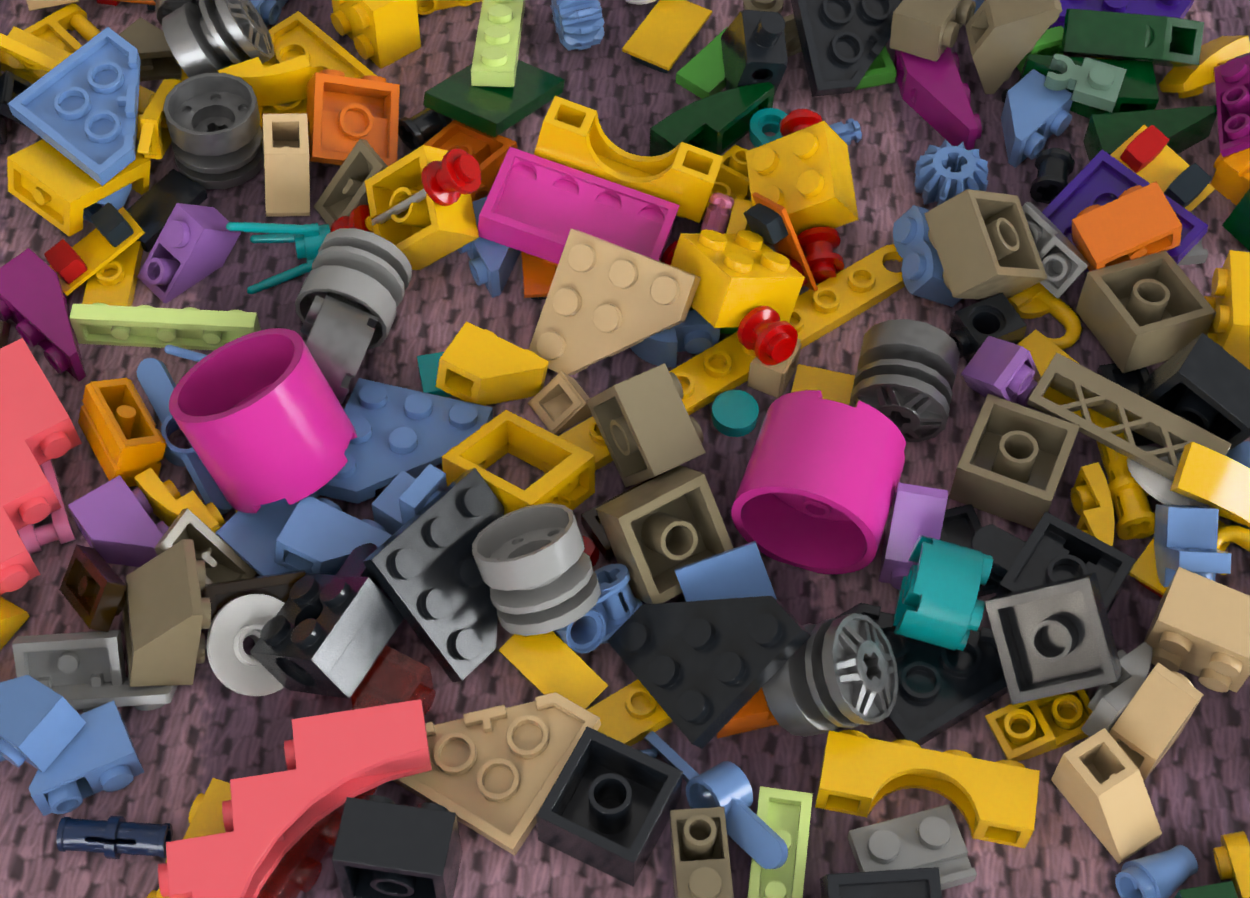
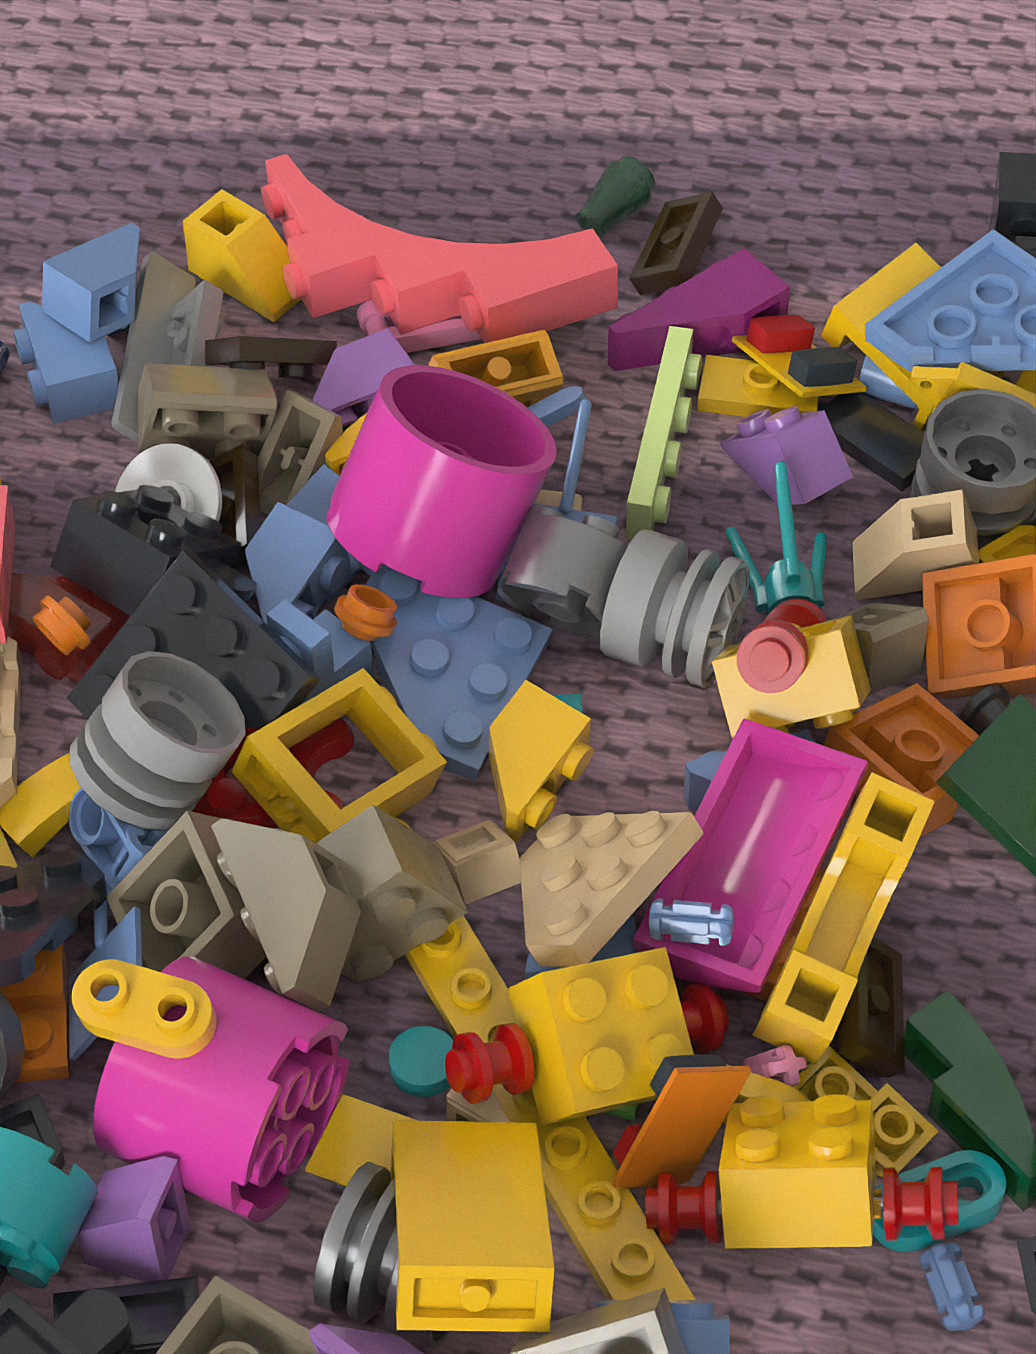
camera: 100 degrees right, 5 degrees down
(380, 469) = (366, 612): none -> orange plate
(418, 667) = (63, 624): none -> orange plate
(645, 232) = (691, 922): none -> medium blue piece
(690, 435) = (293, 907): none -> dark tan slope
(827, 477) = (139, 1009): none -> yellow plate
(892, 316) = (471, 1227): none -> yellow panel

